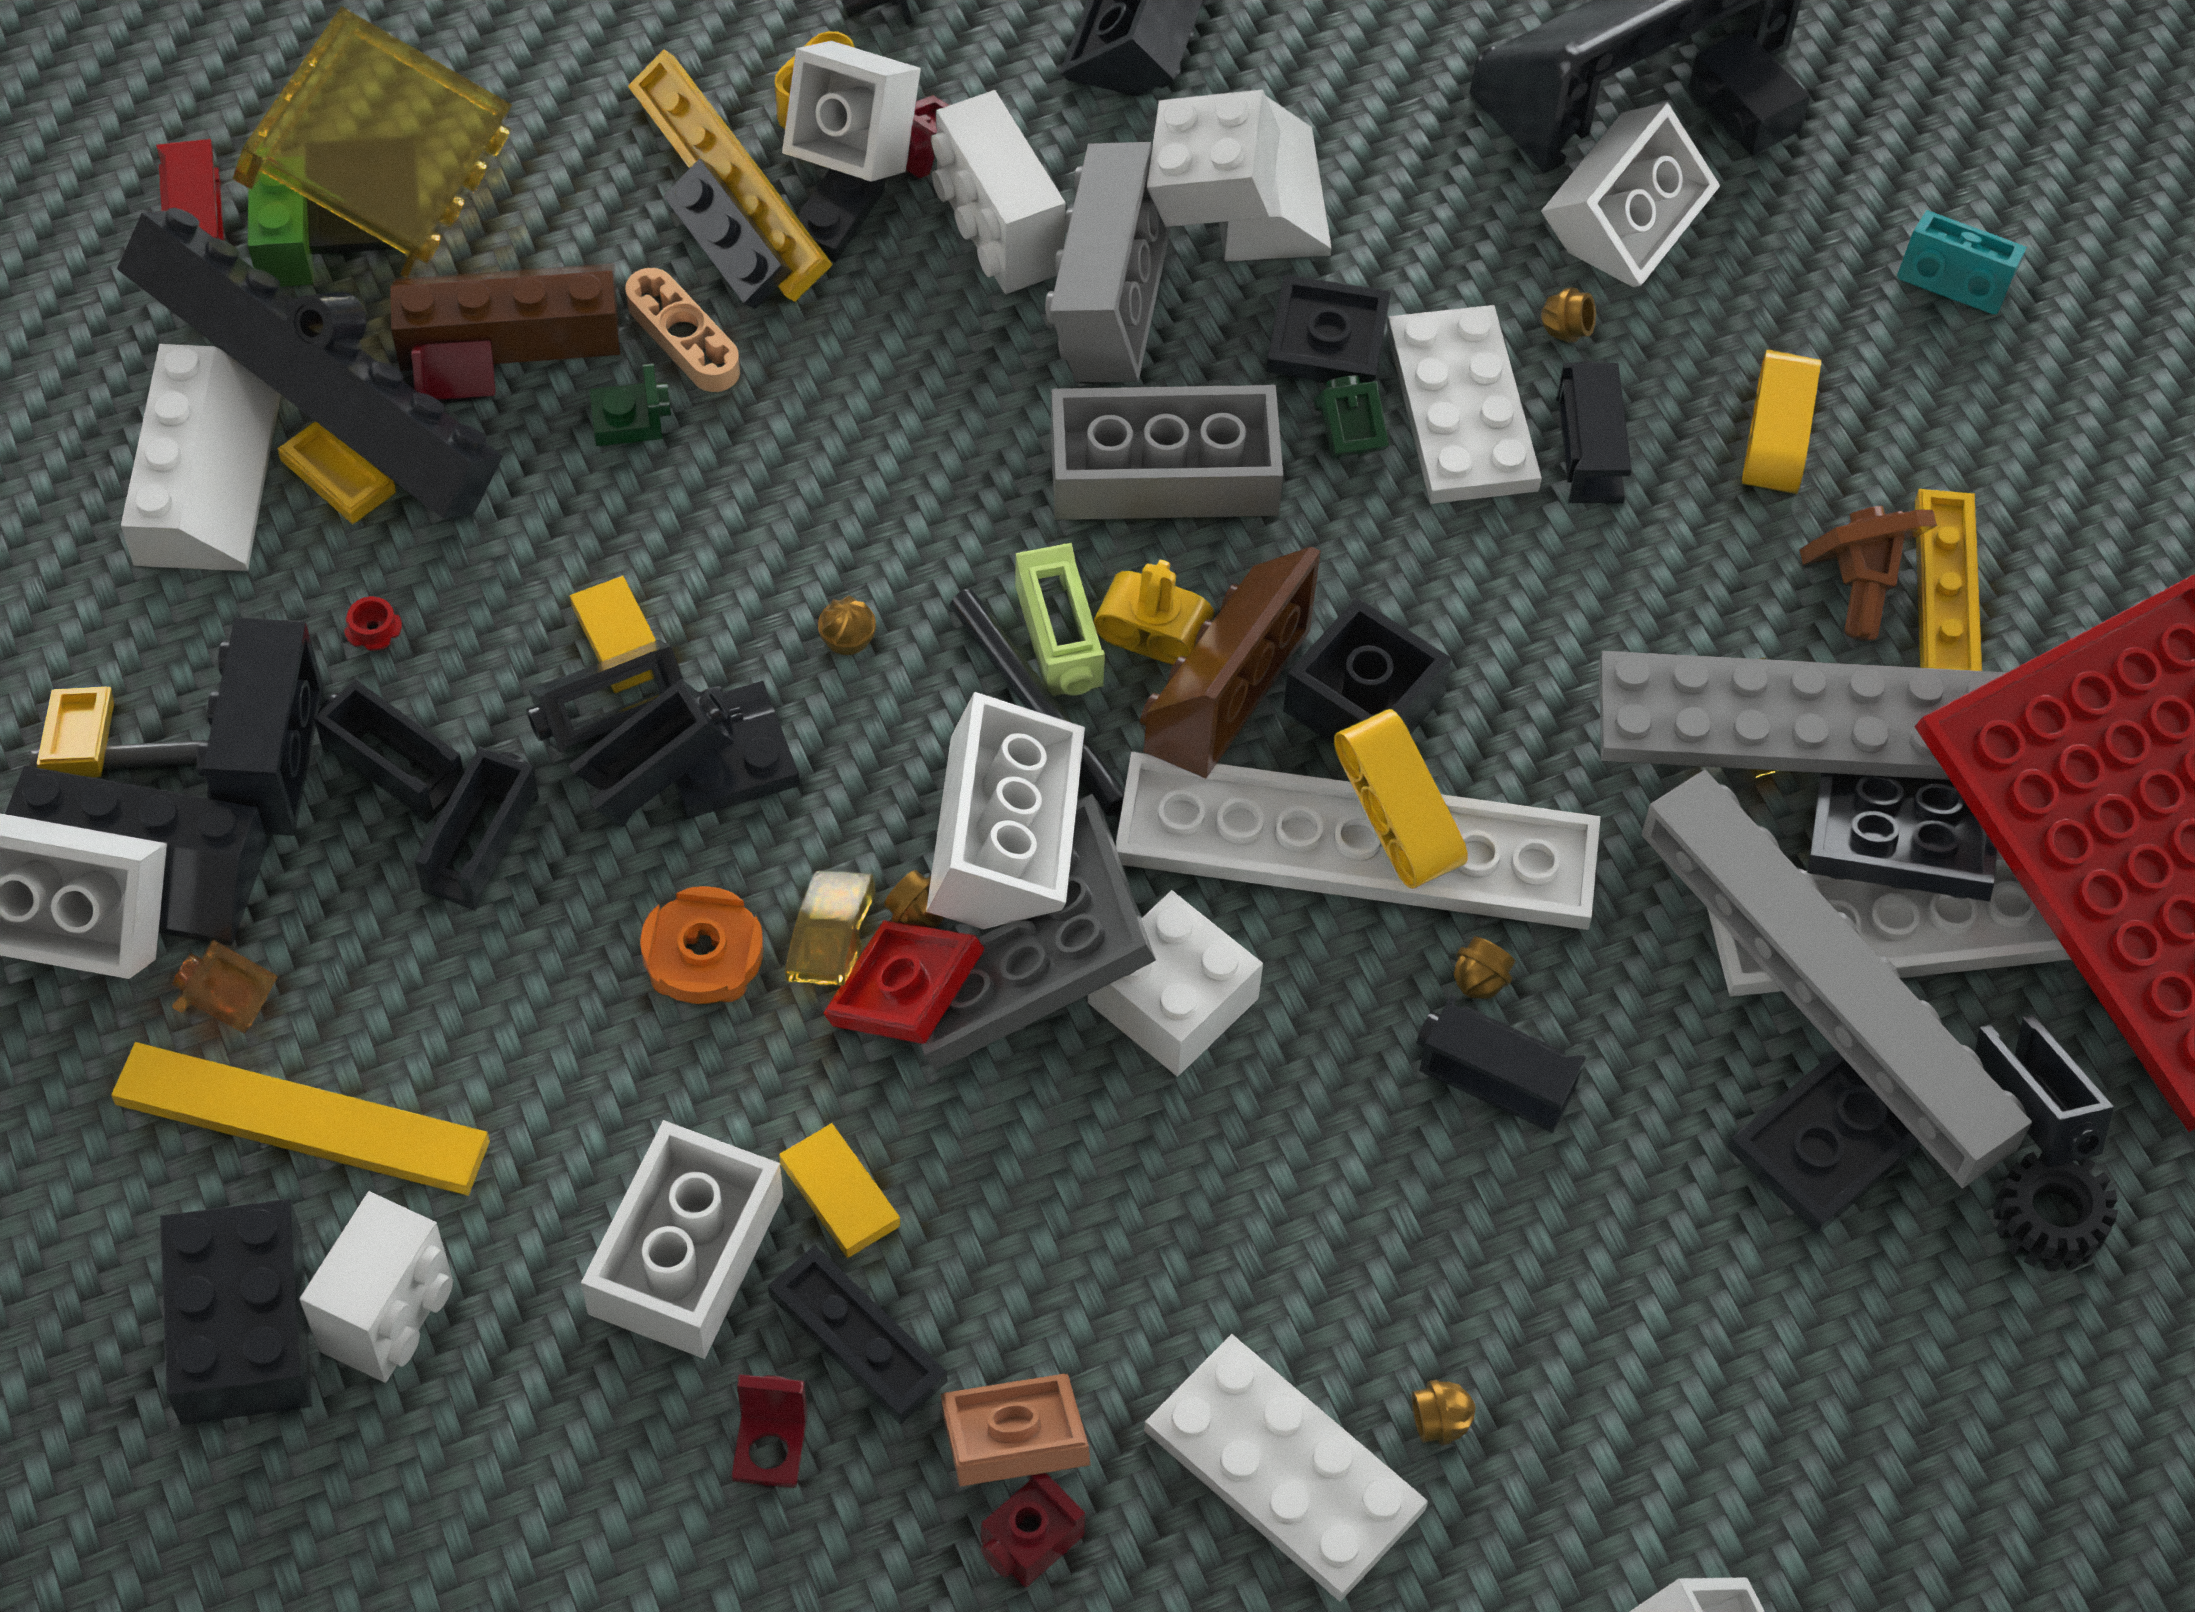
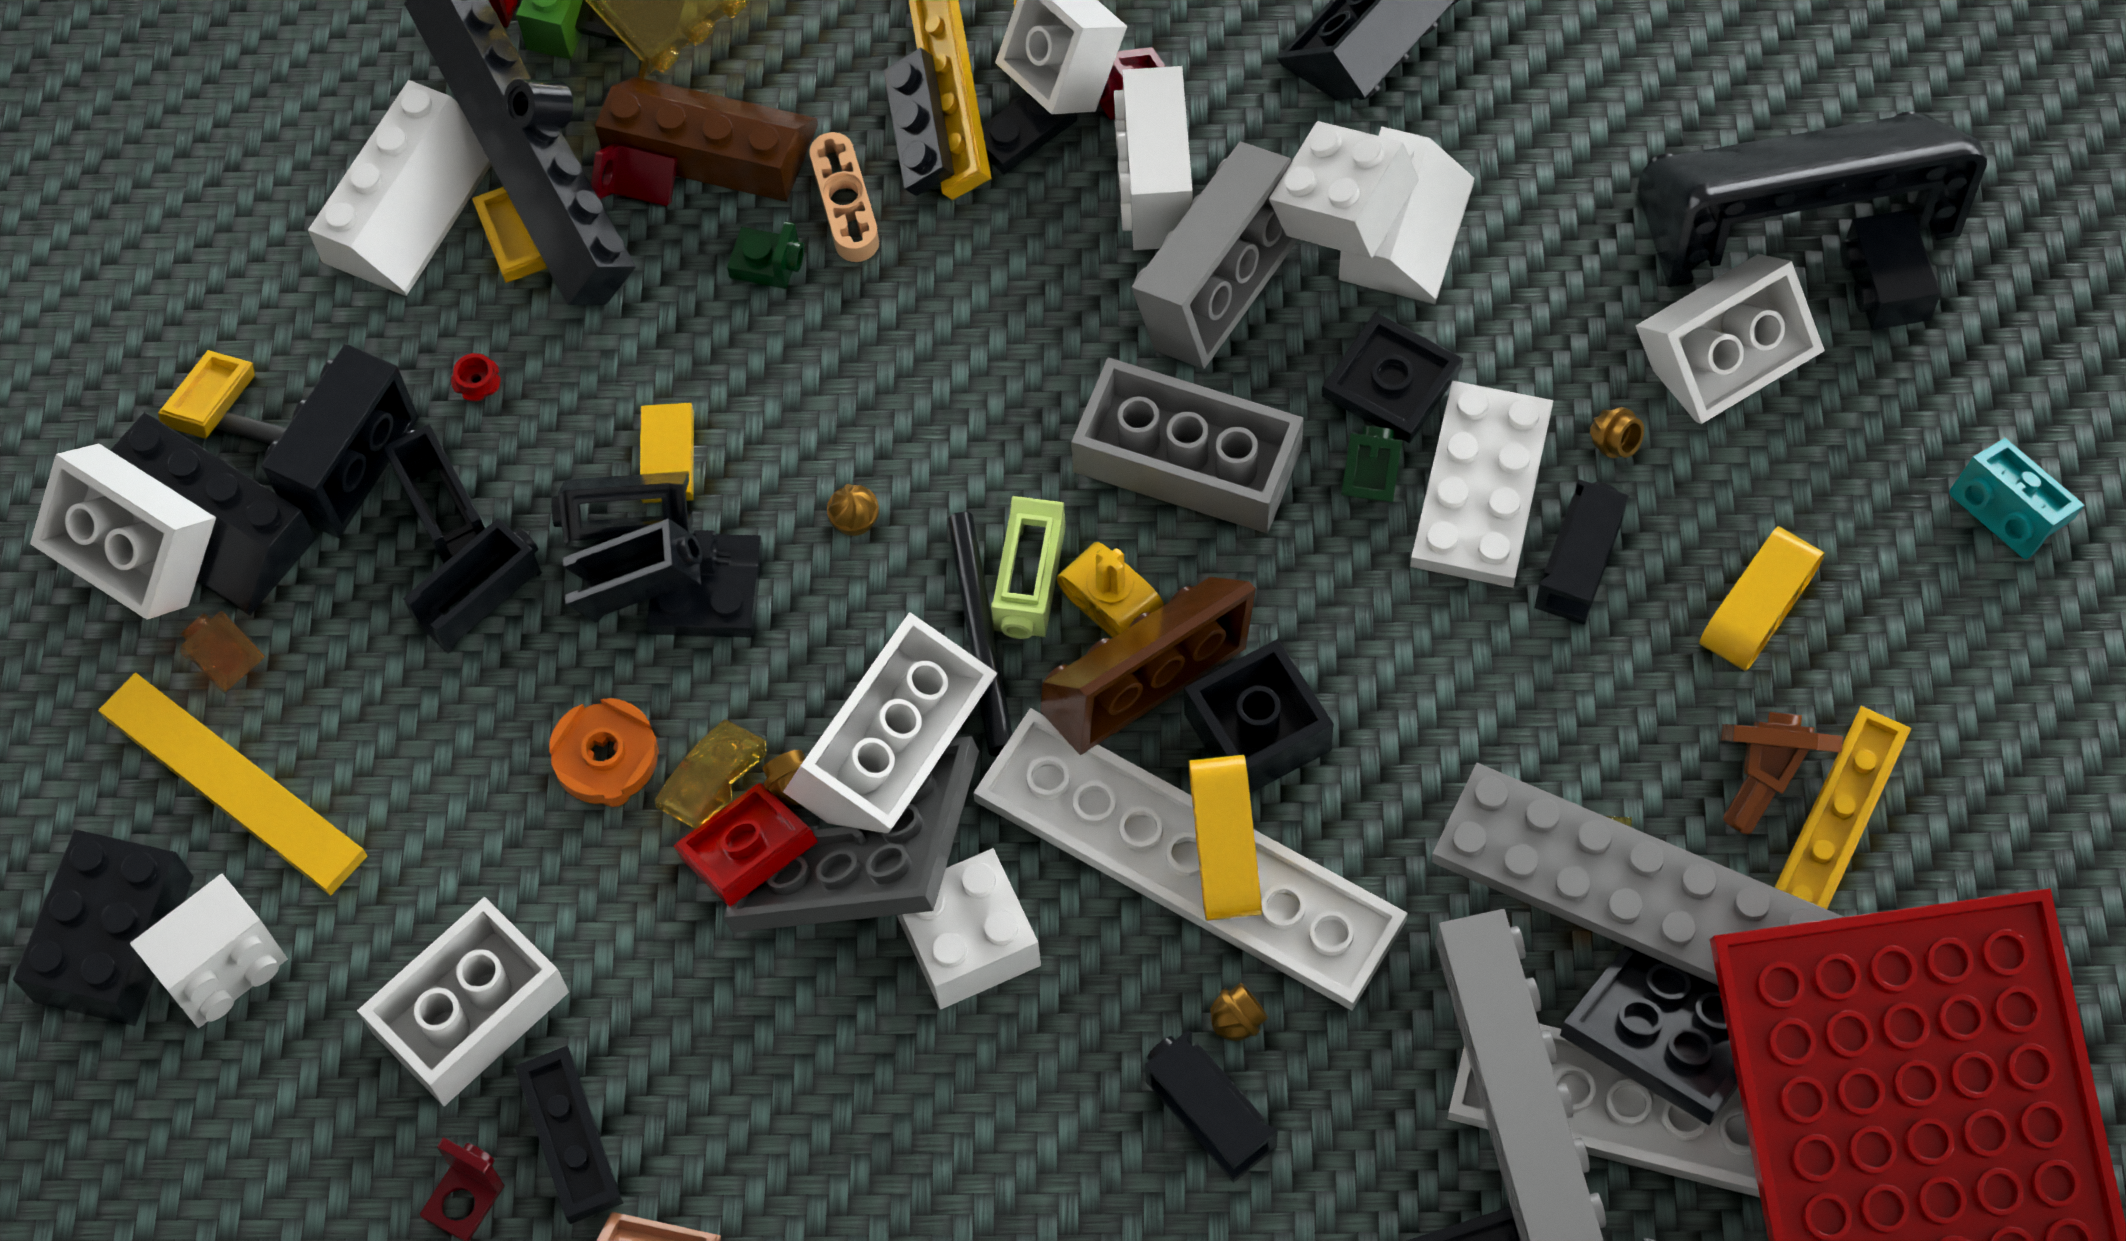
camera: 30 degrees right, 5 degrees up
(839, 1190) = (615, 1004): yellow tile -> none

